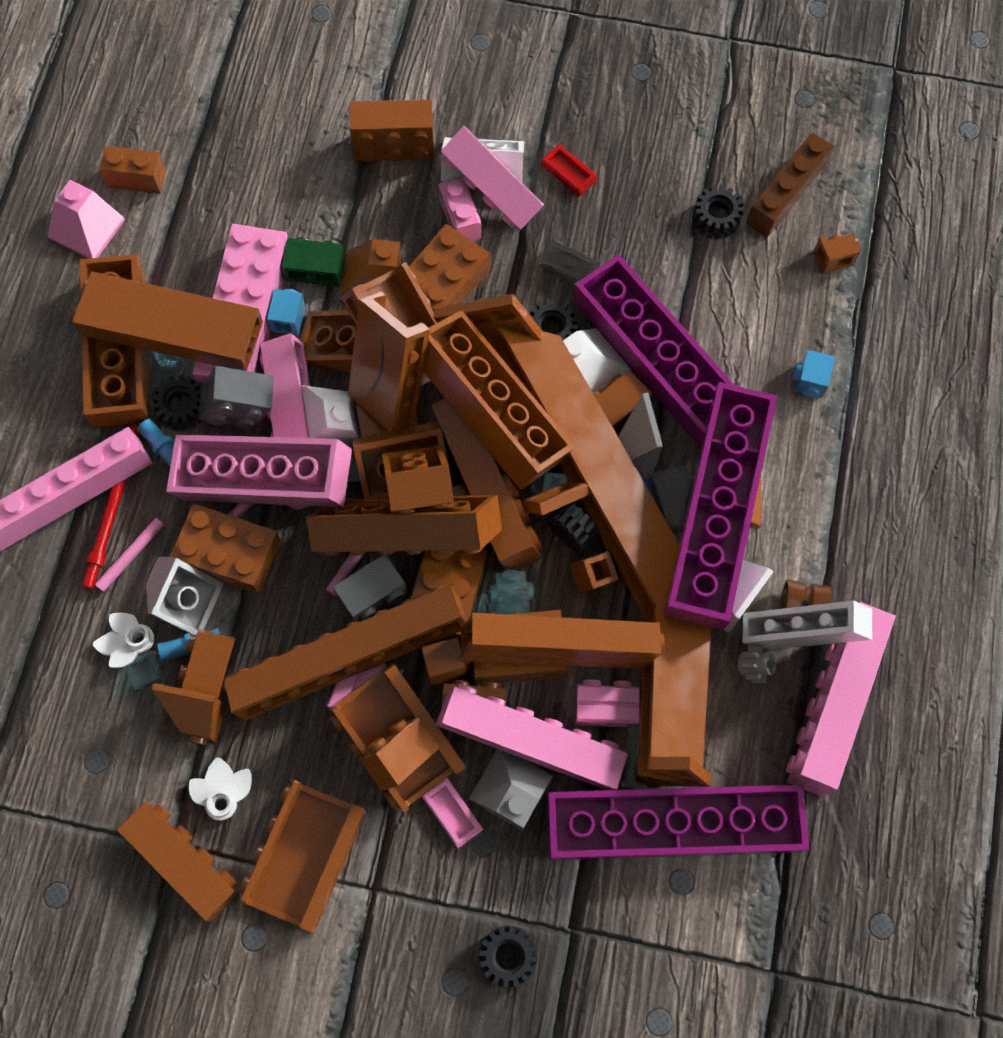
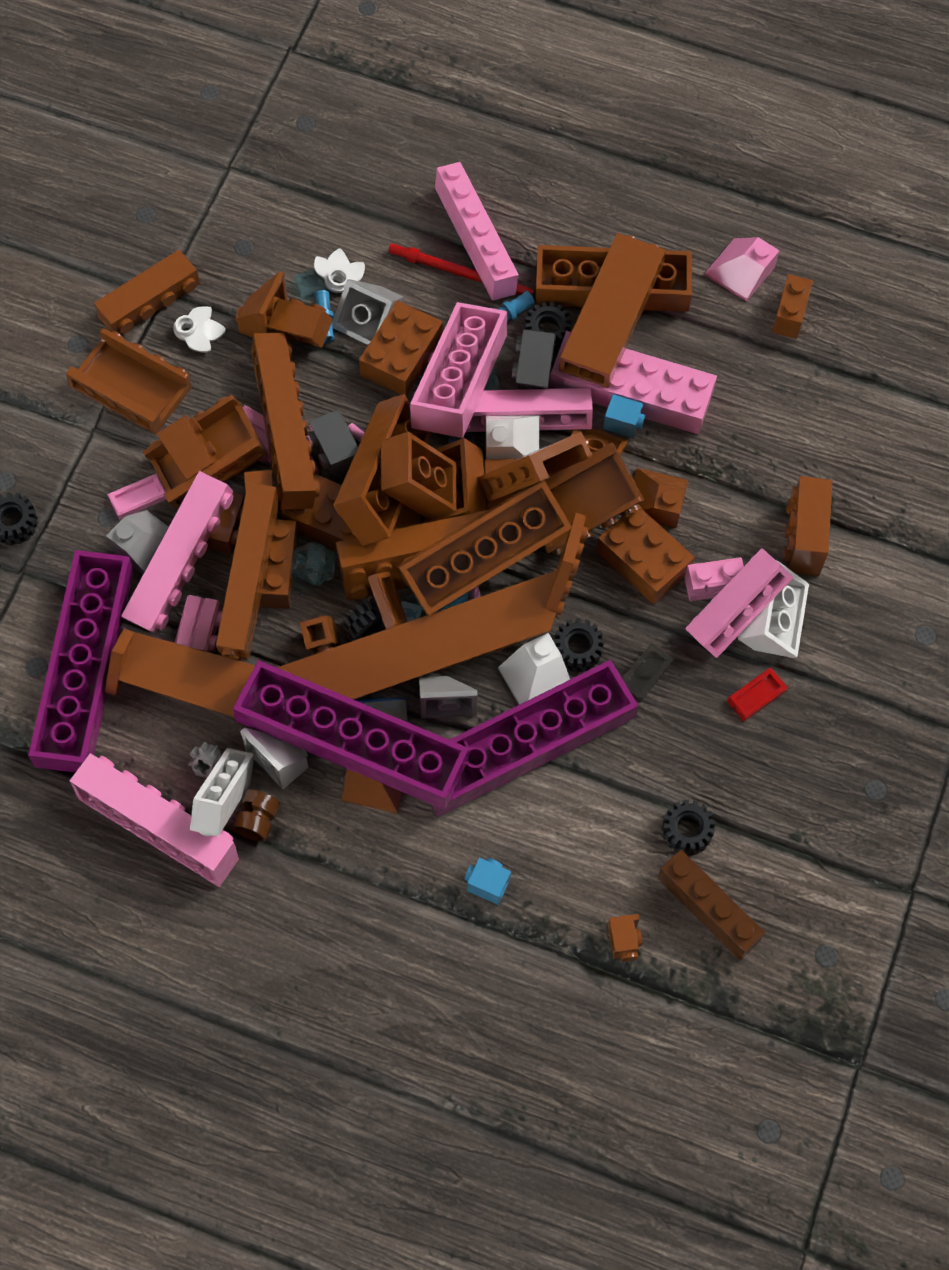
camera: 100 degrees right, 5 degrees down
(129, 555) = (414, 281): bright pink bar -> none
(313, 261) = (676, 445): dark green brick -> none
(621, 398) = (492, 692): dark orange brick -> none

